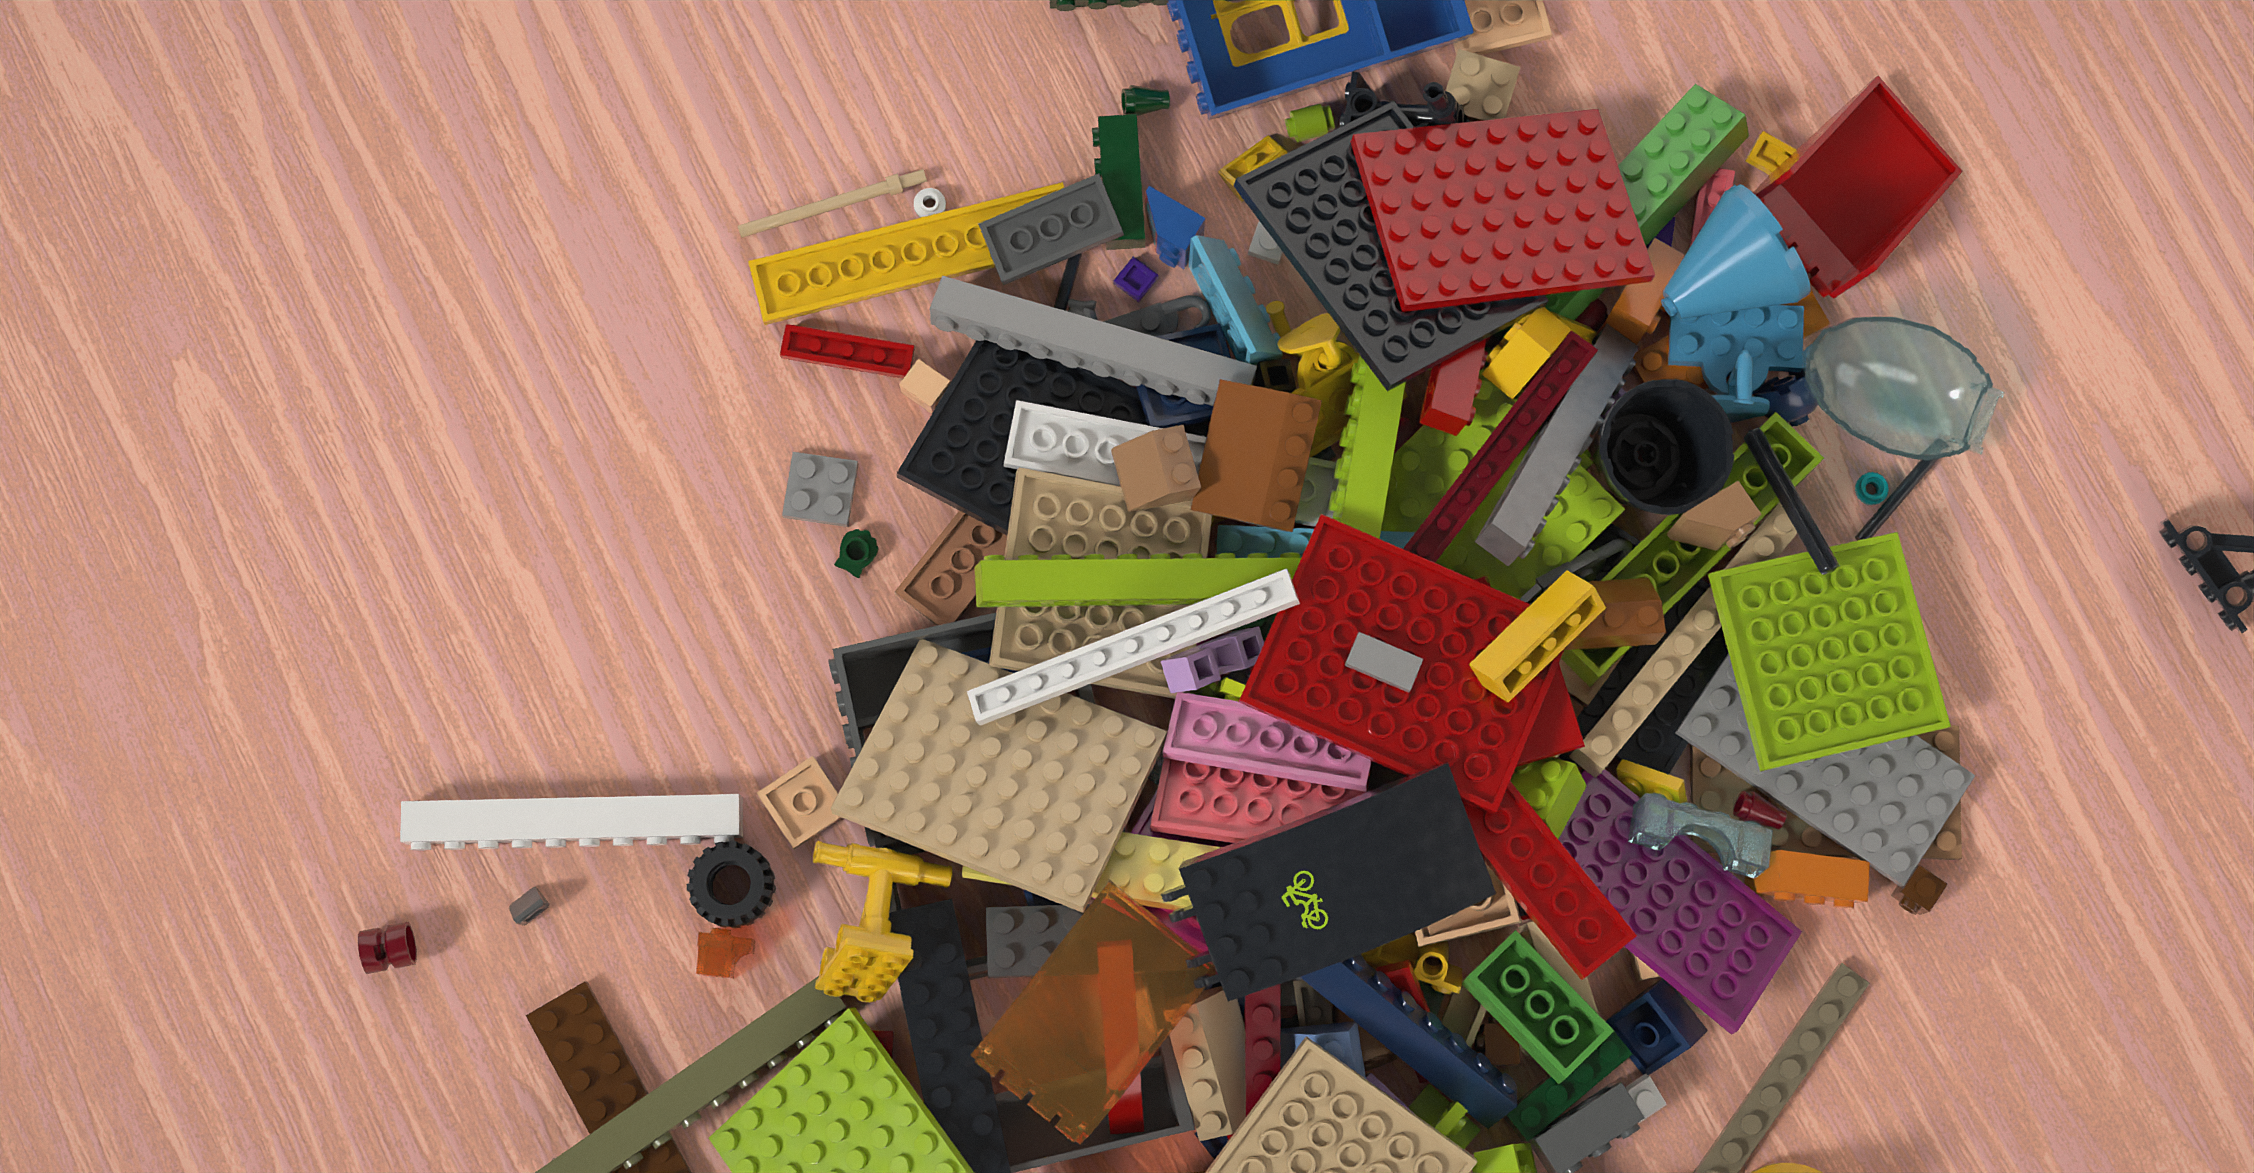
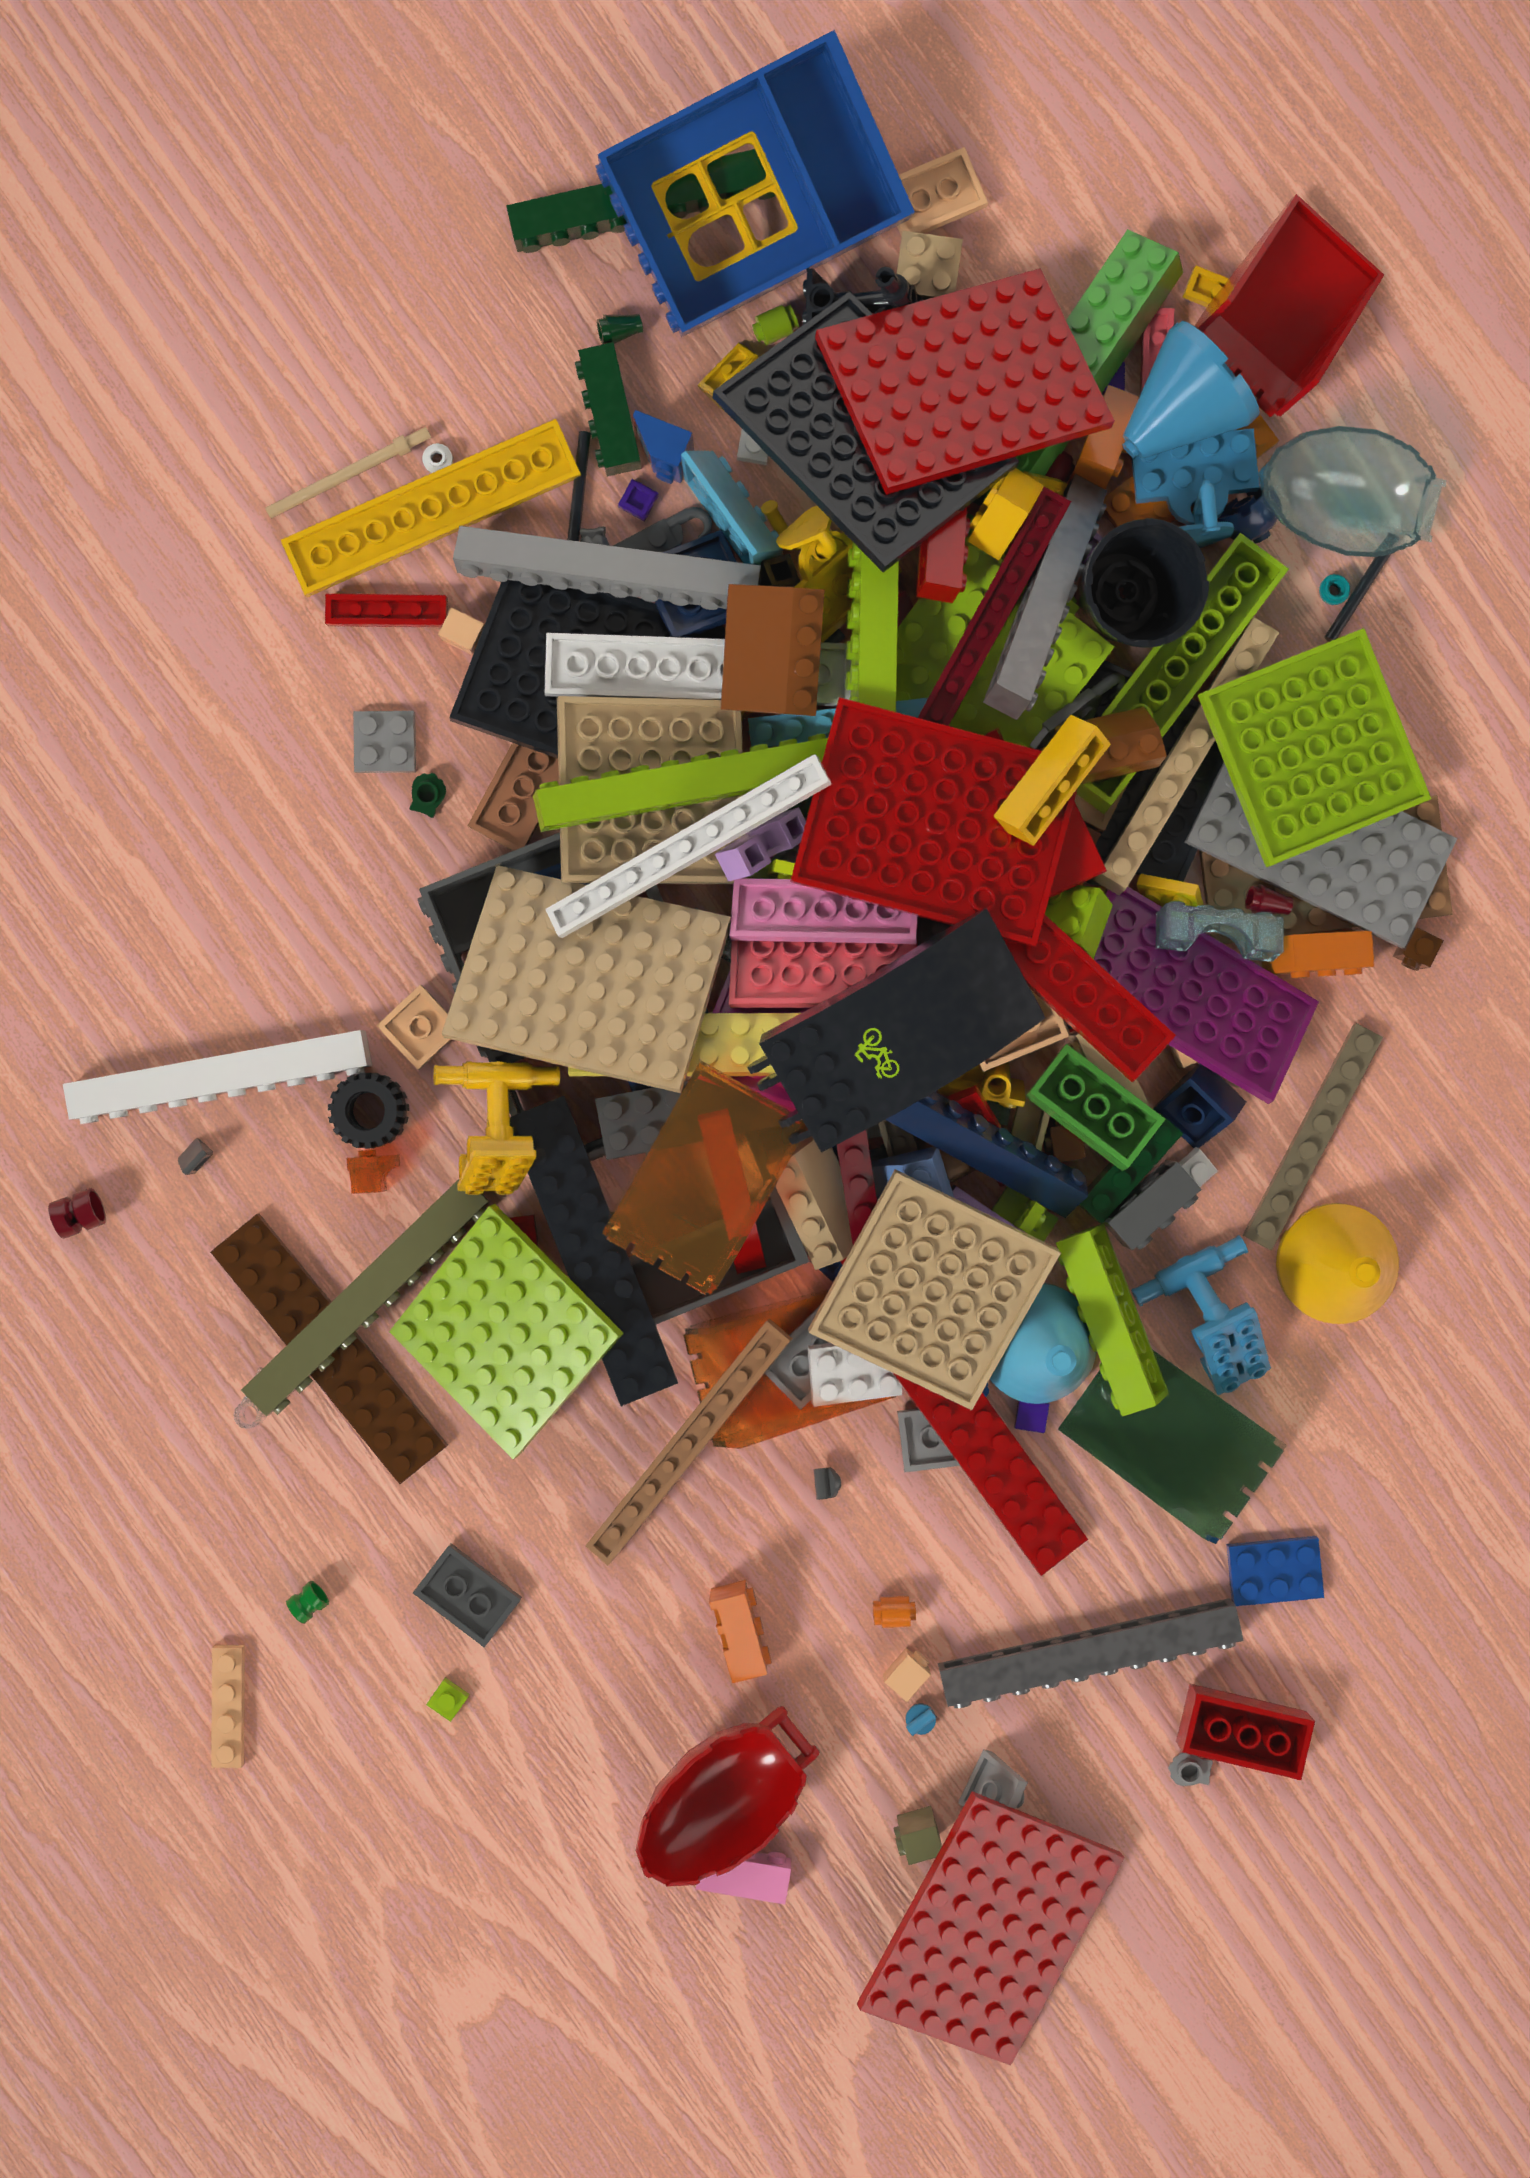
camera: 10 degrees left, 10 degrees up
(1051, 229) = (552, 465): dark grey plate -> none
(1156, 469) = (683, 677): medium nougat slope -> none
(1384, 662) = (916, 825): light grey tile -> none
(1718, 520) = (1201, 644): medium nougat slope -> none
(1791, 501) = (1264, 614): black axle -> none

